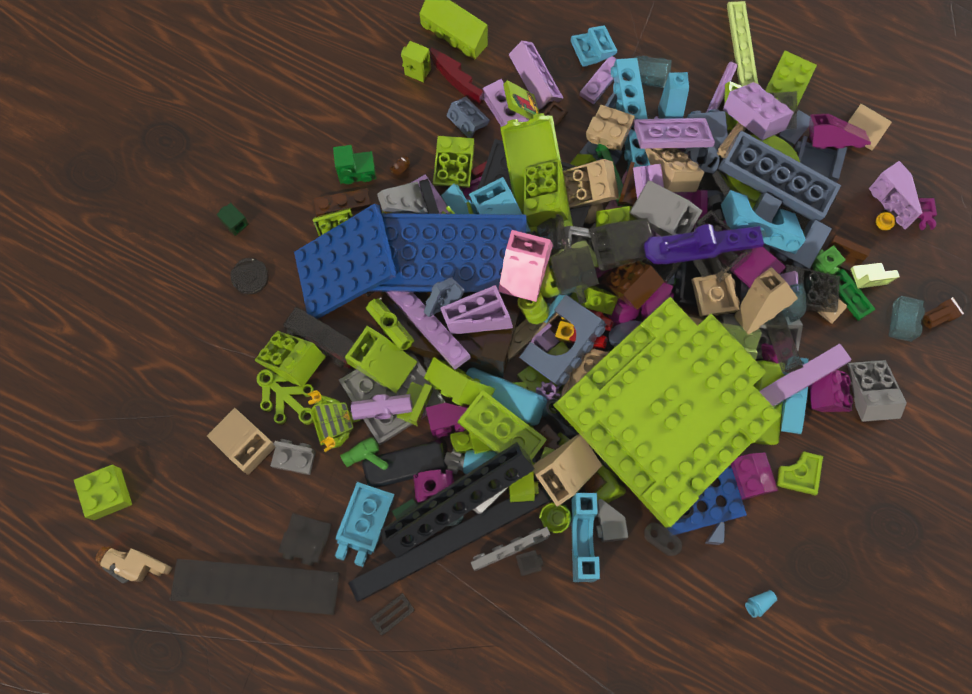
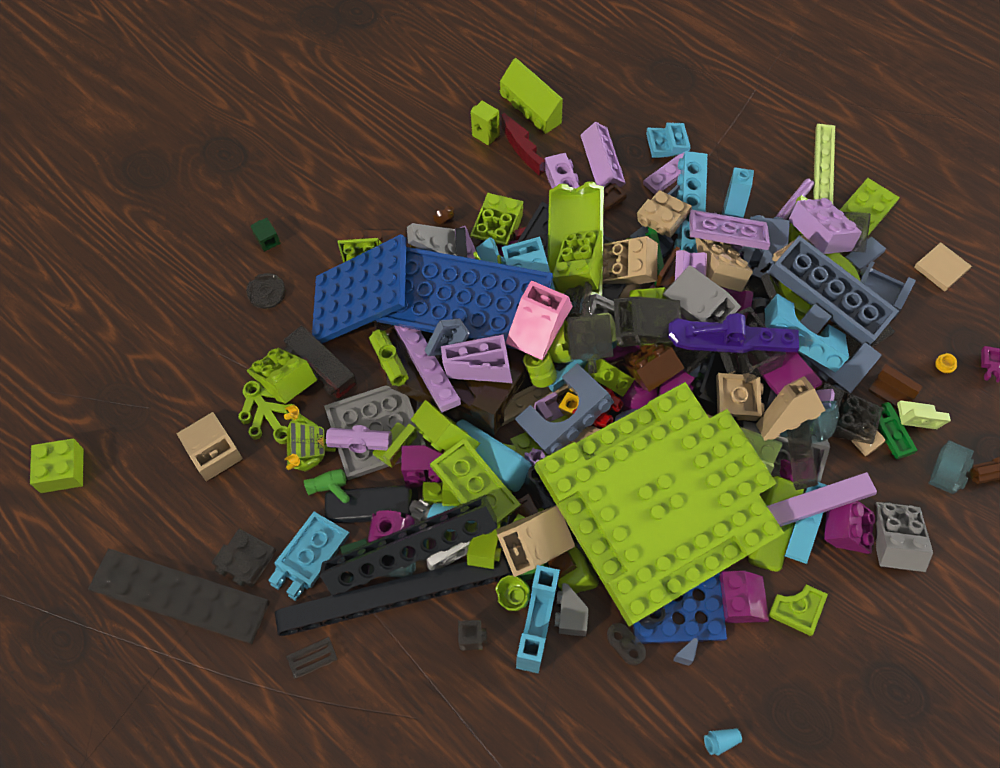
camera: 15 degrees right, 10 degrees down
(131, 565) = (59, 544): tan plate -> none
(293, 457) = (256, 472): light grey bracket -> none
(353, 166) = (395, 207): green brick -> none
(380, 359) = (370, 392): lime slope -> none
(466, 116) = (523, 182): sand blue bracket -> none
(517, 545) = (477, 610): light grey wing -> none
(520, 100) = (577, 172): lime tile -> none
(653, 70) = (720, 172): clear light blue brick -> none
(828, 261) = (873, 389): bright green brick -> none
(831, 131) = (901, 260): magenta slope -> none
(898, 194) = (963, 336): lavender slope -> none

